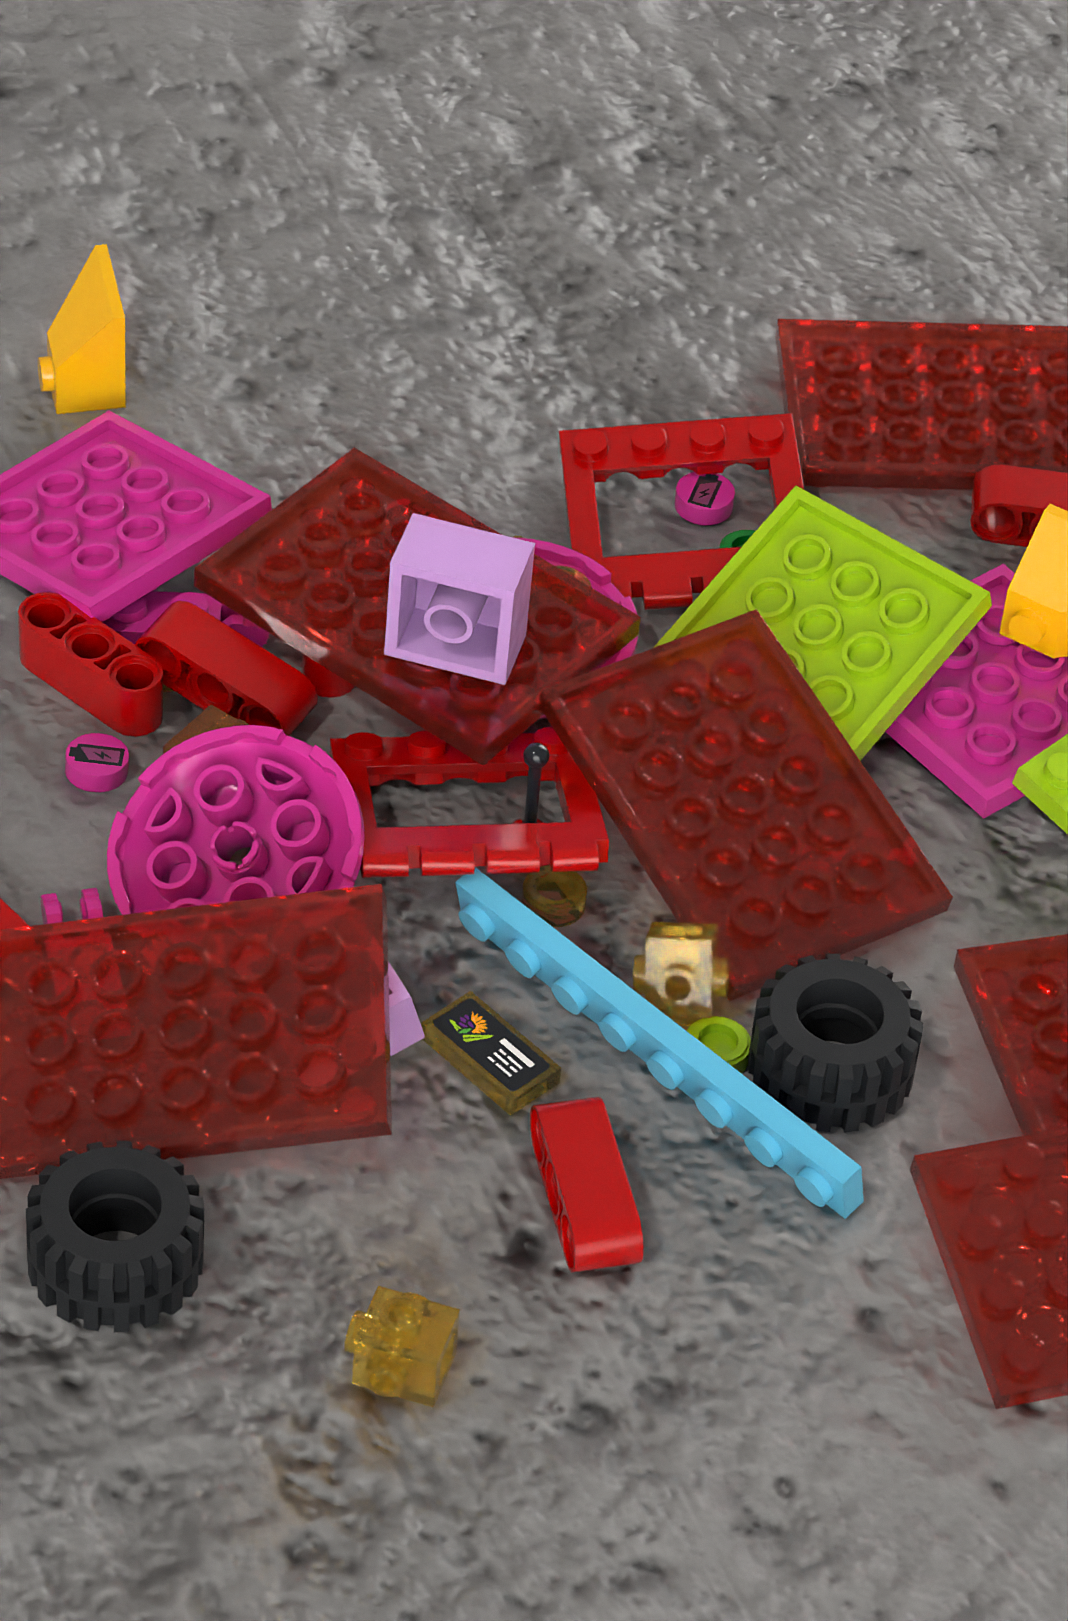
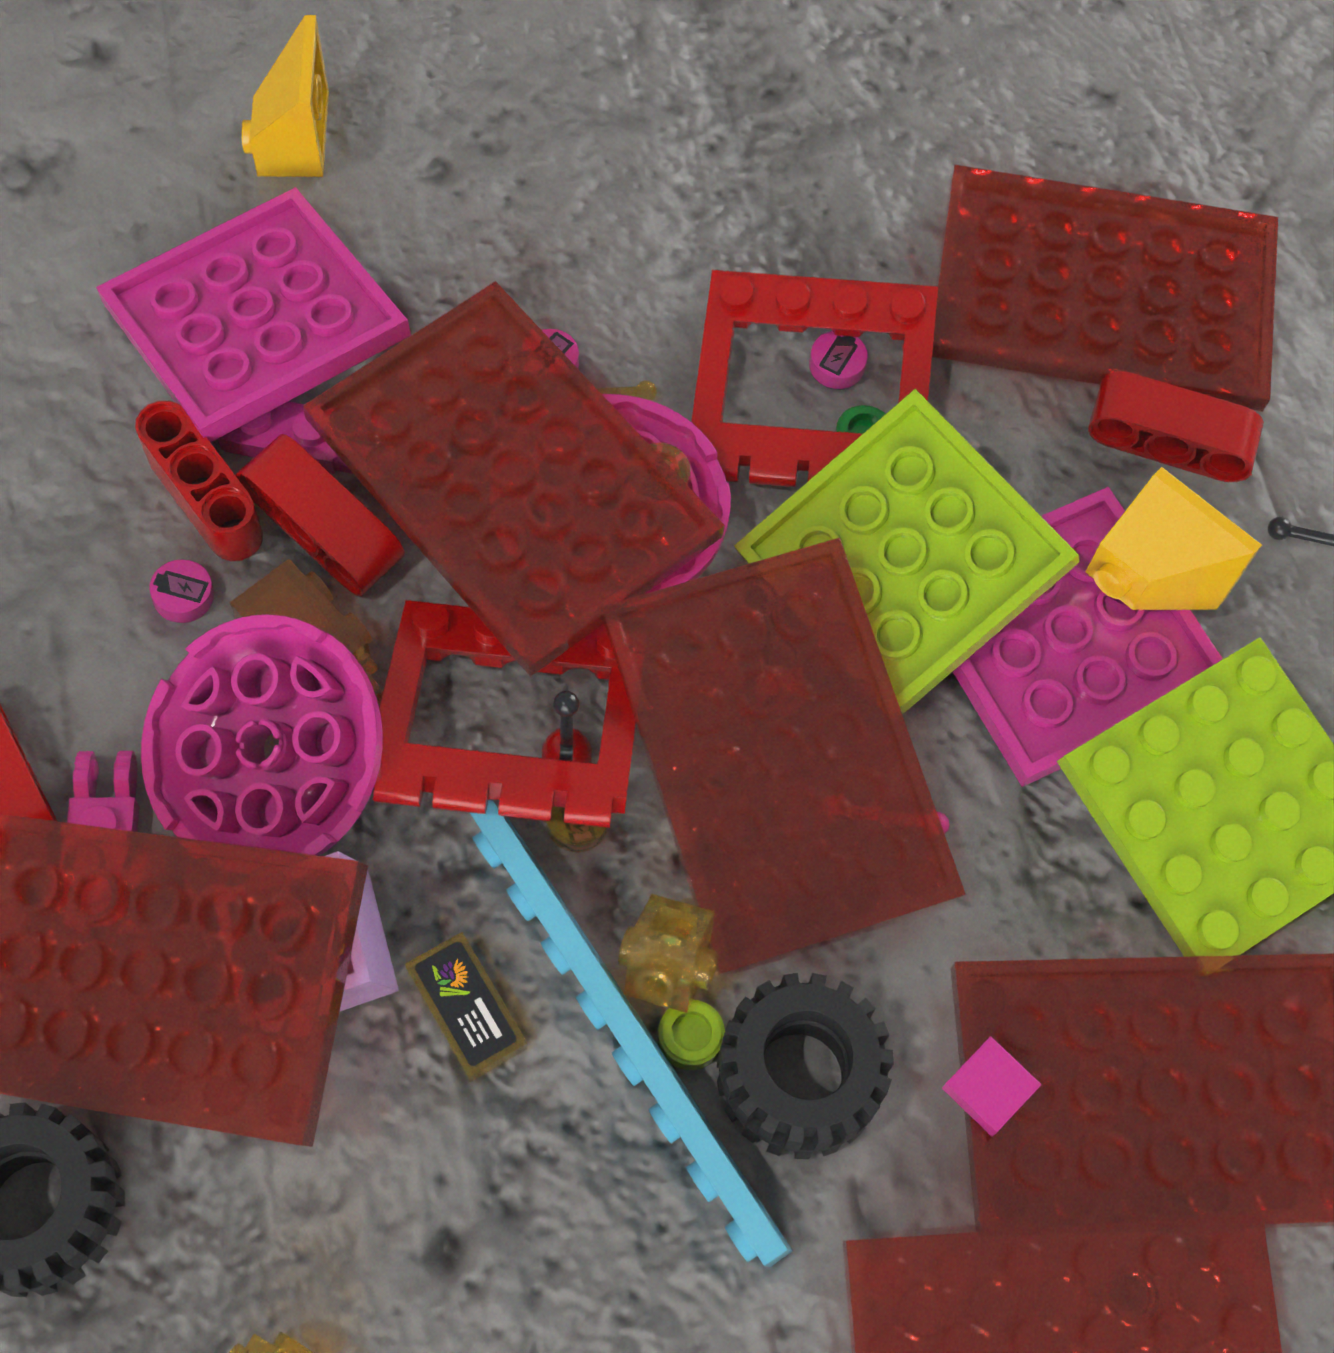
camera: 10 degrees right, 20 degrees up
(458, 598) = (531, 501): lavender brick -> none
(586, 1184) = (513, 1200): red beam -> none
(1018, 1031) = (991, 1086): none -> dark pink tile

